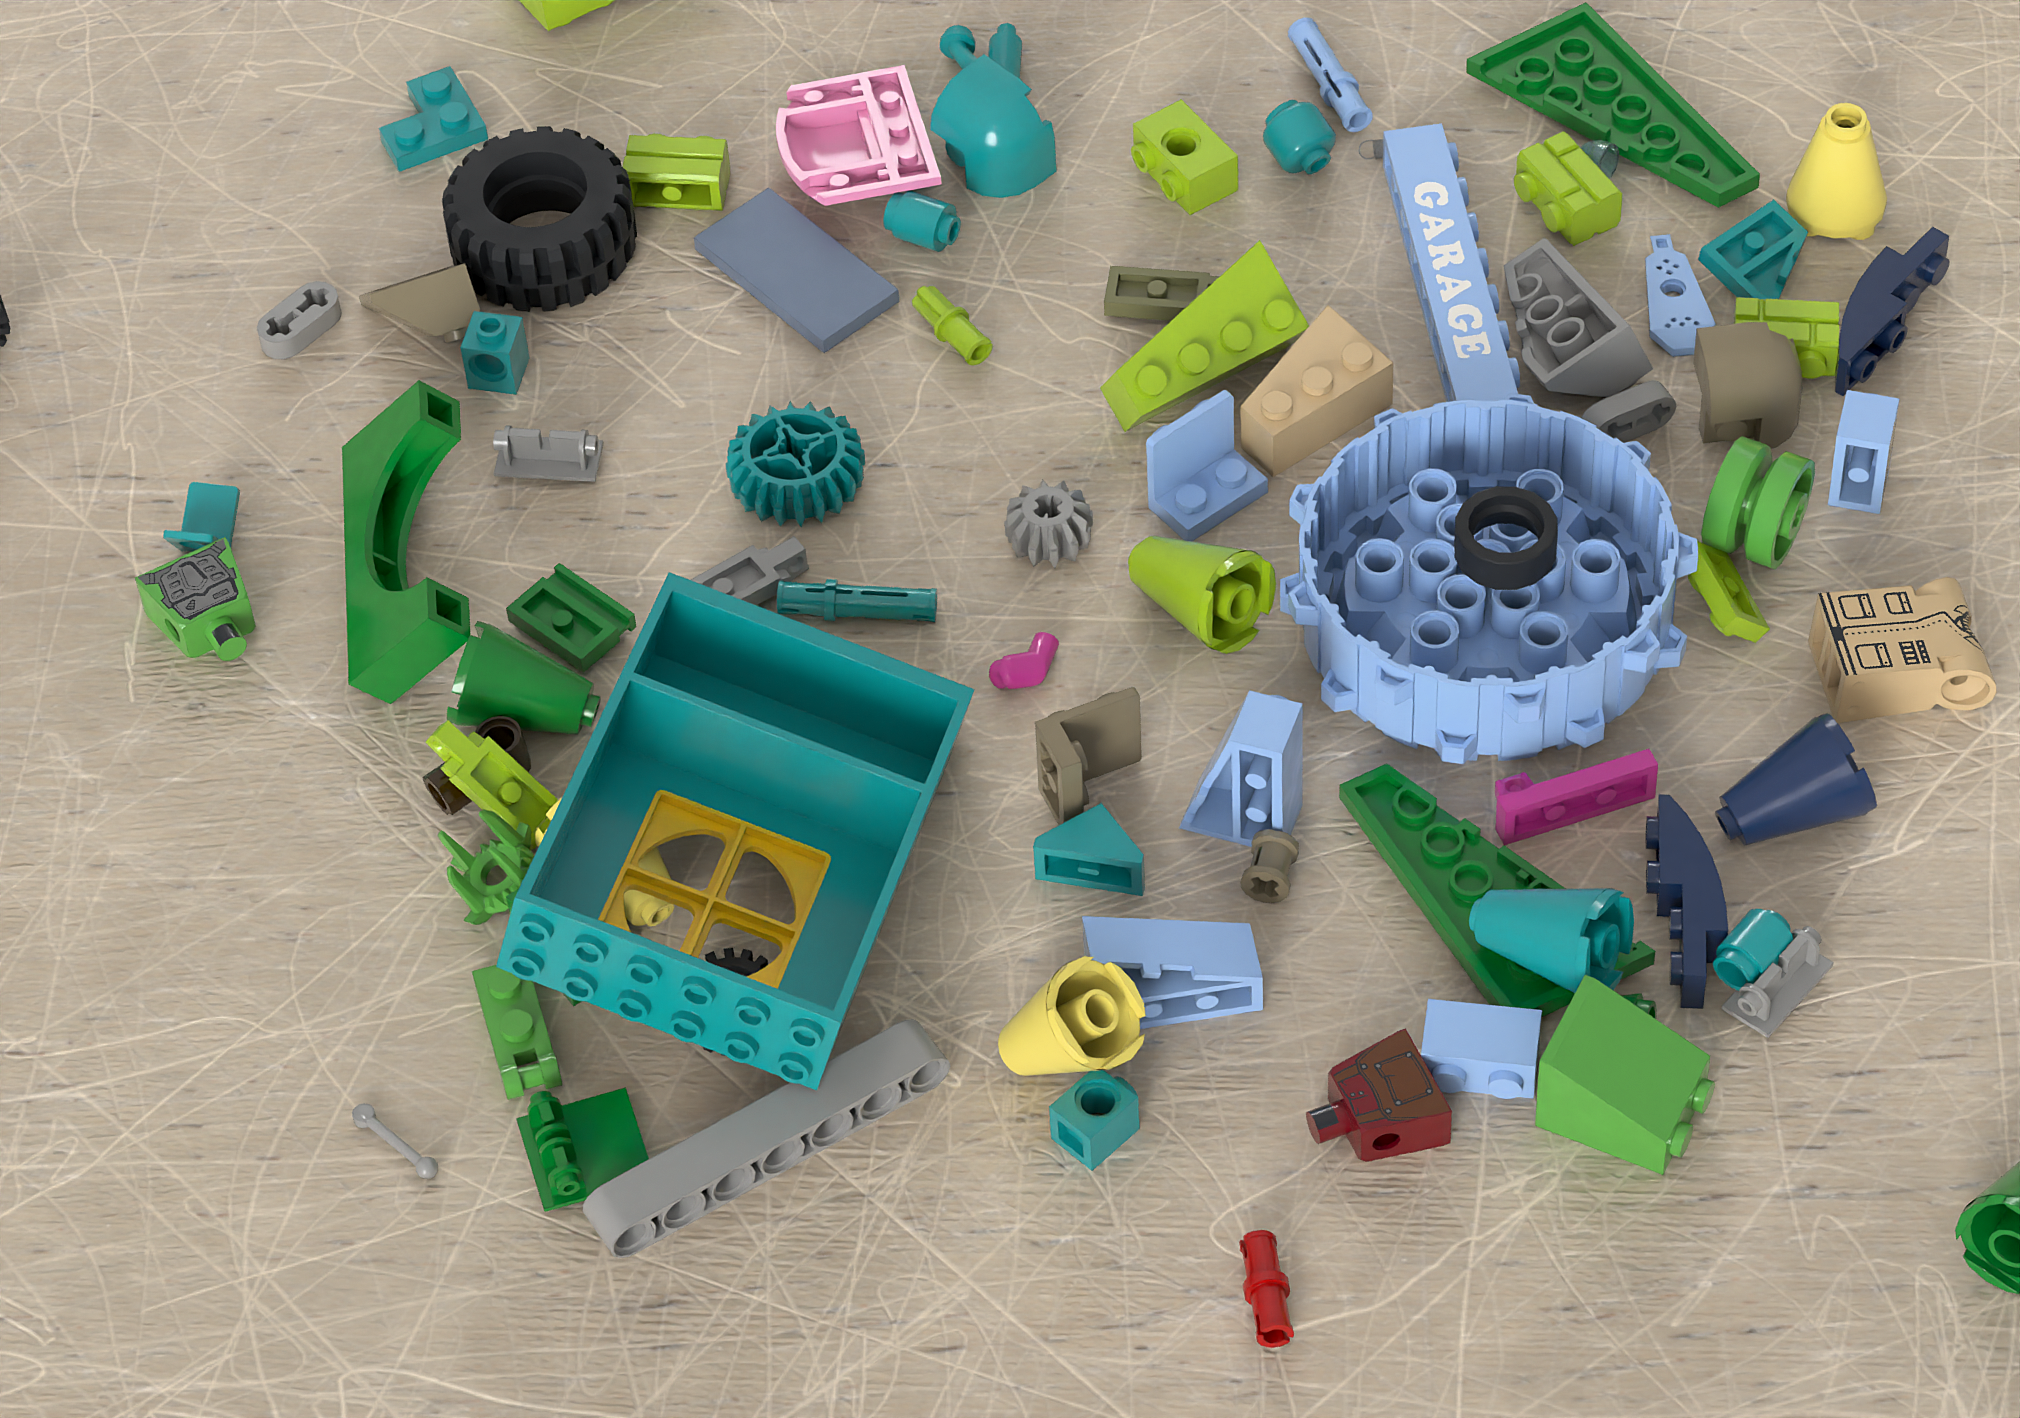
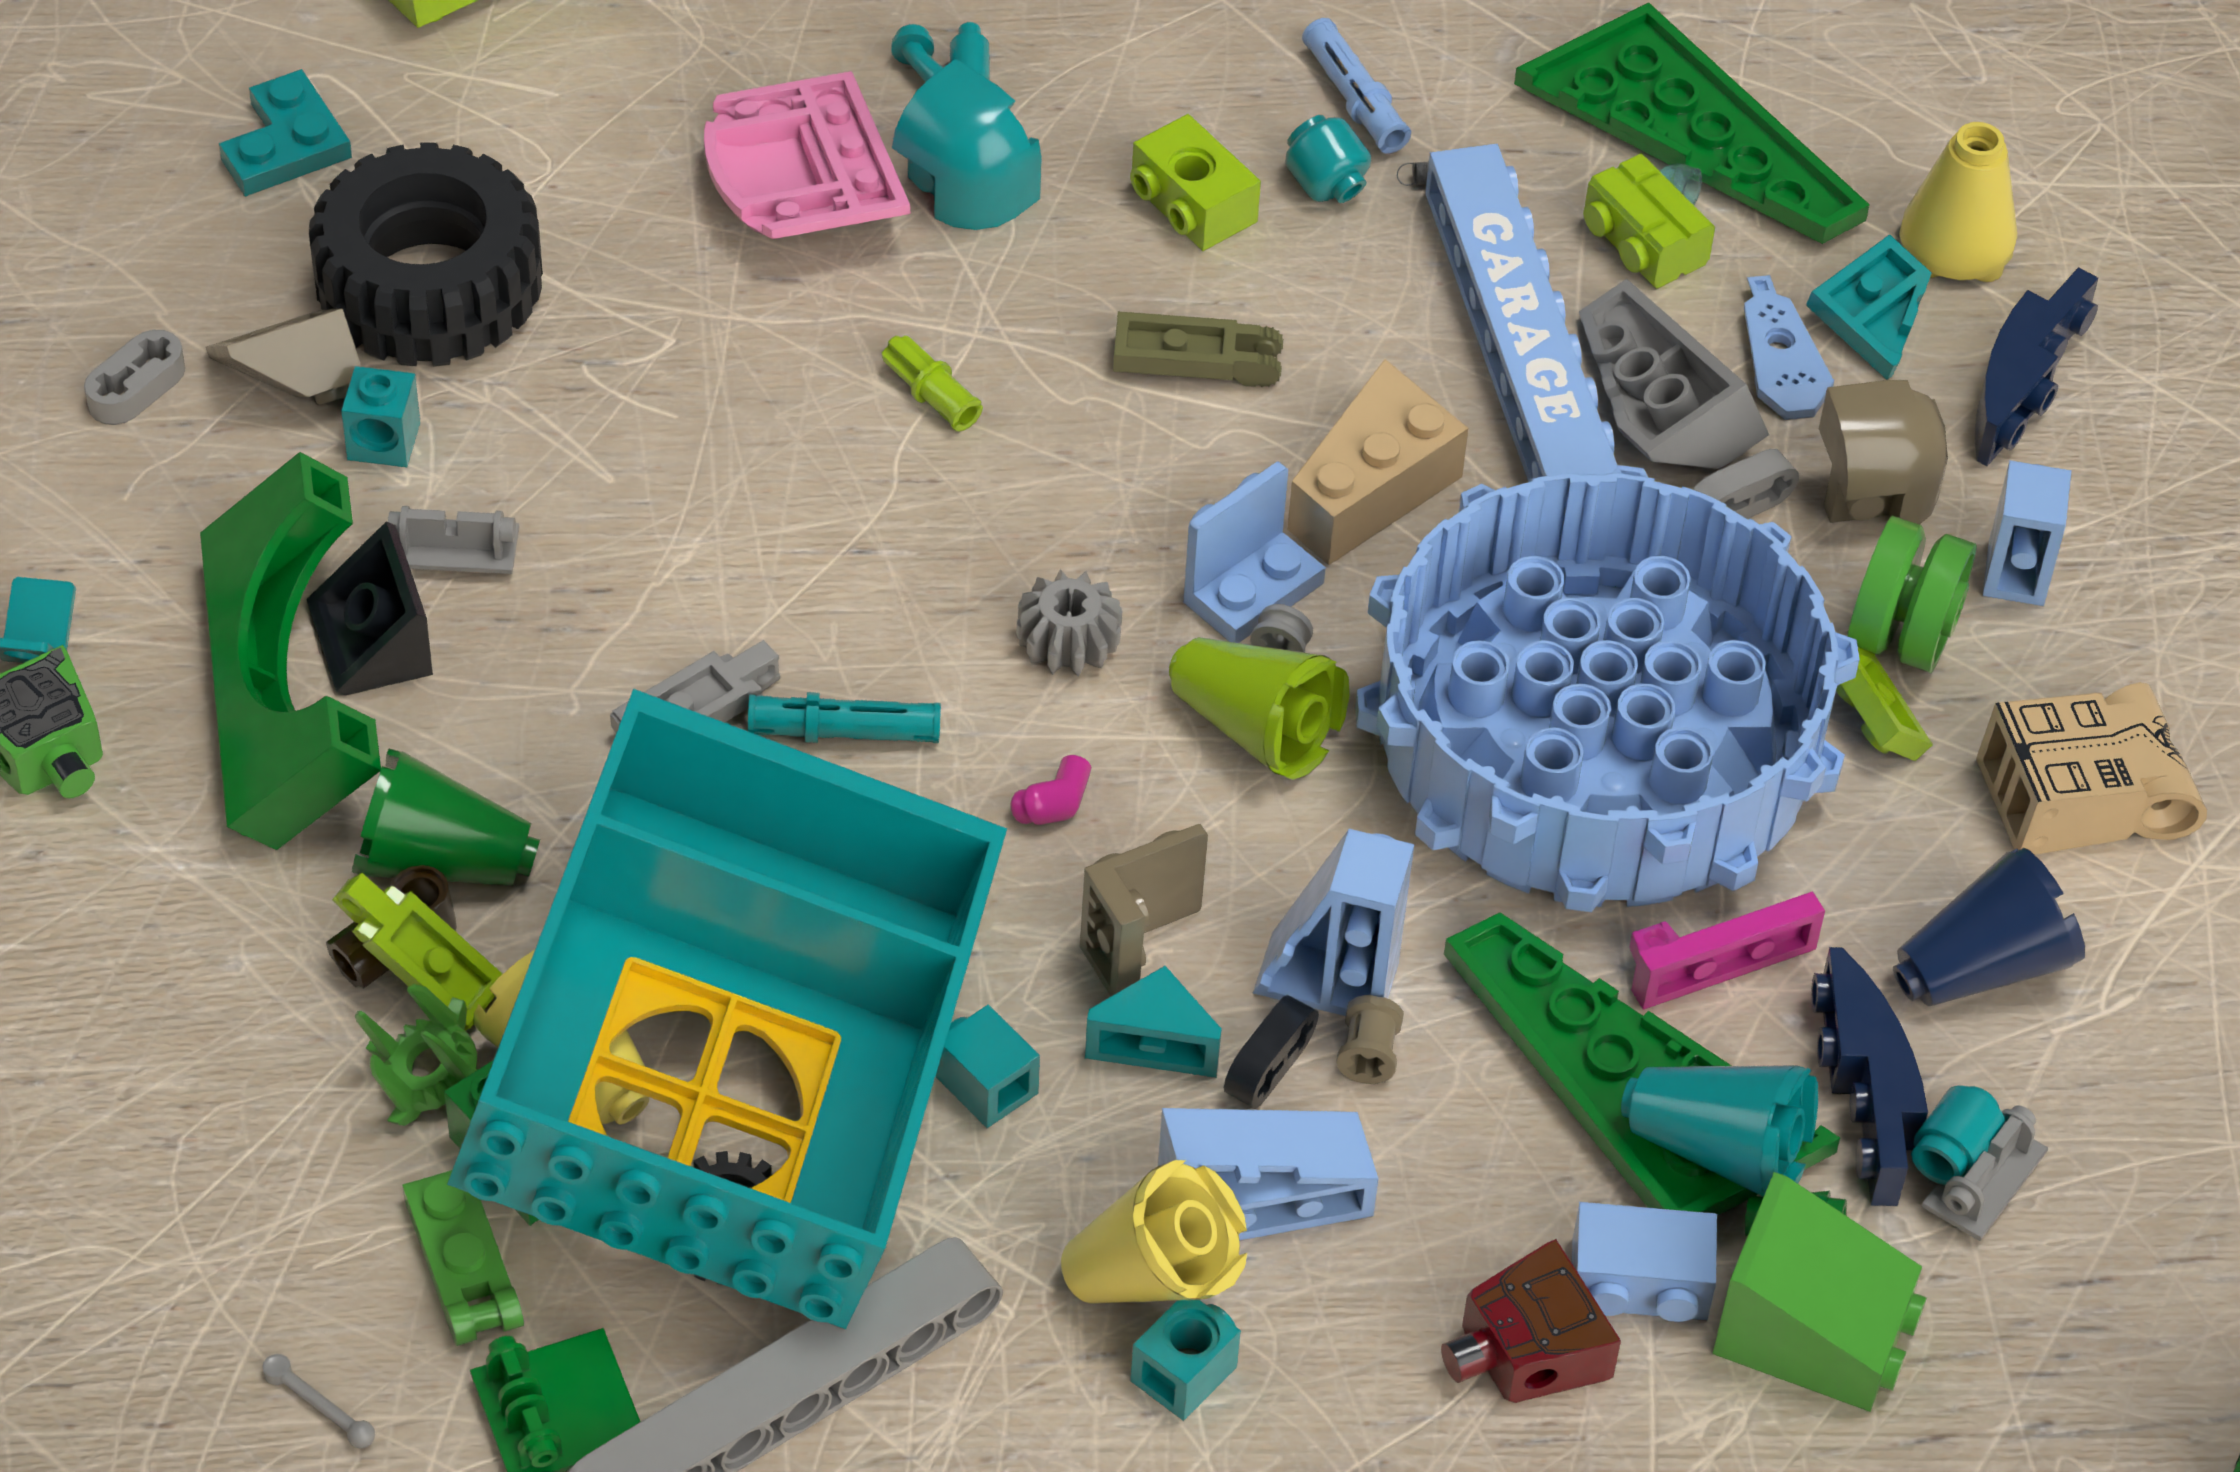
camera: 10 degrees left, 0 degrees up
(477, 517) = (372, 618): none -> black slope
(571, 617) = (495, 741): green plate -> none
(677, 171) = (589, 197): lime brick -> none
(795, 463) = (757, 551): teal gear -> none
(796, 270) = (739, 316): sand blue tile -> none
(922, 220) = (887, 257): teal brick -> none
(951, 883) = (988, 1066): none -> teal brick
(1186, 874) = (1271, 1051): none -> black beam
(1219, 334) = (1258, 391): lime wedge -> none
(1226, 529) = (1282, 628): none -> light grey bush
(1502, 569) = (1643, 603): black tyre -> none
(1809, 323) = (1947, 378): lime brick -> none

